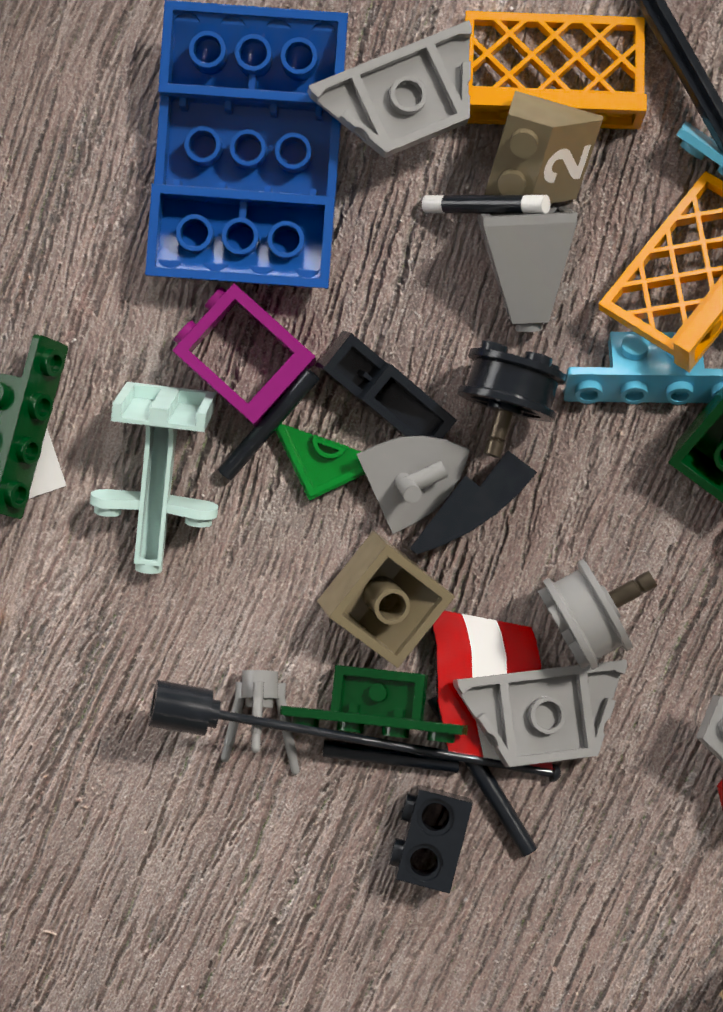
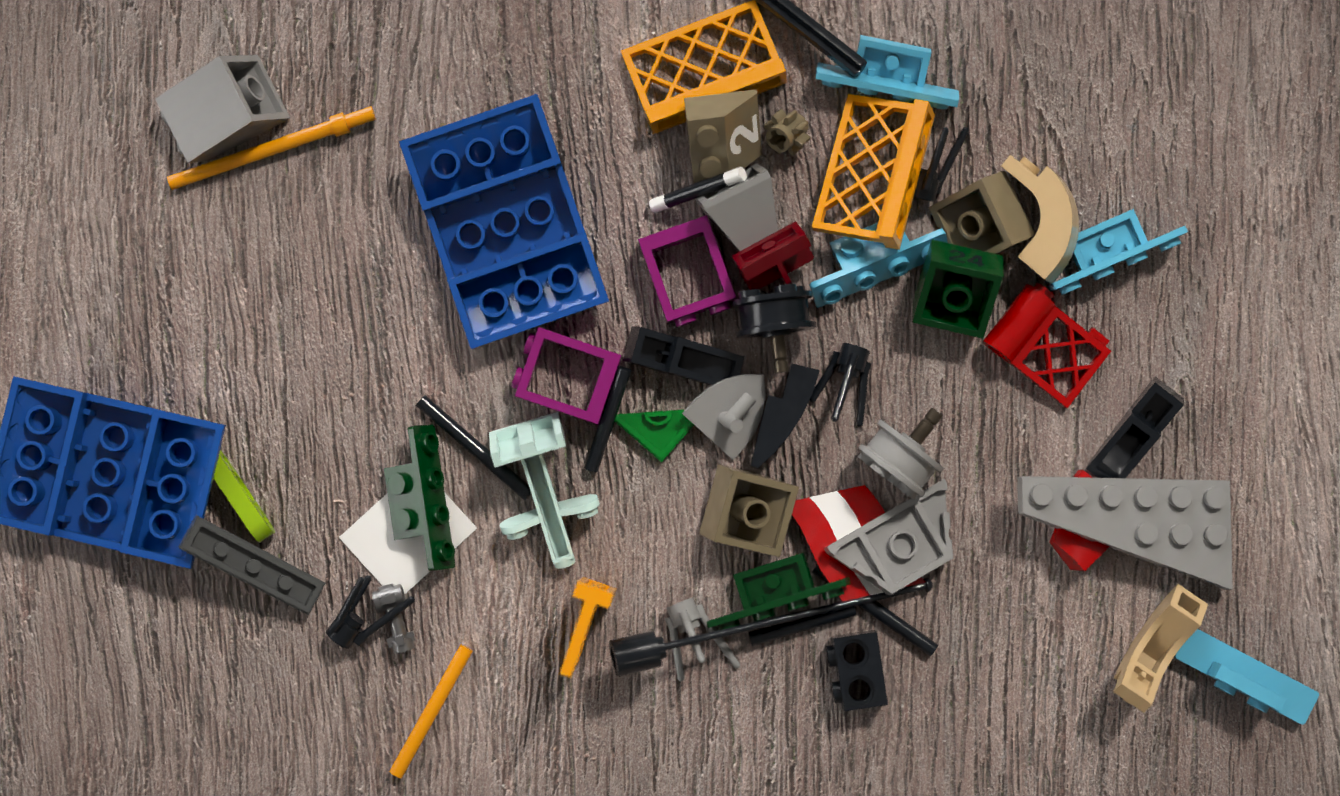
camera: 20 degrees left, 0 degrees up
(101, 388) = (473, 446): none -> black bar
(160, 620) = (594, 594): none -> light orange fence
(404, 93) = (604, 135): light grey wing -> none
(435, 248) = (675, 236): none -> magenta window
(541, 319) = (774, 257): none -> dark red panel
(576, 480) = (851, 362): none -> black plant
(616, 183) = (787, 132): none -> dark tan gear

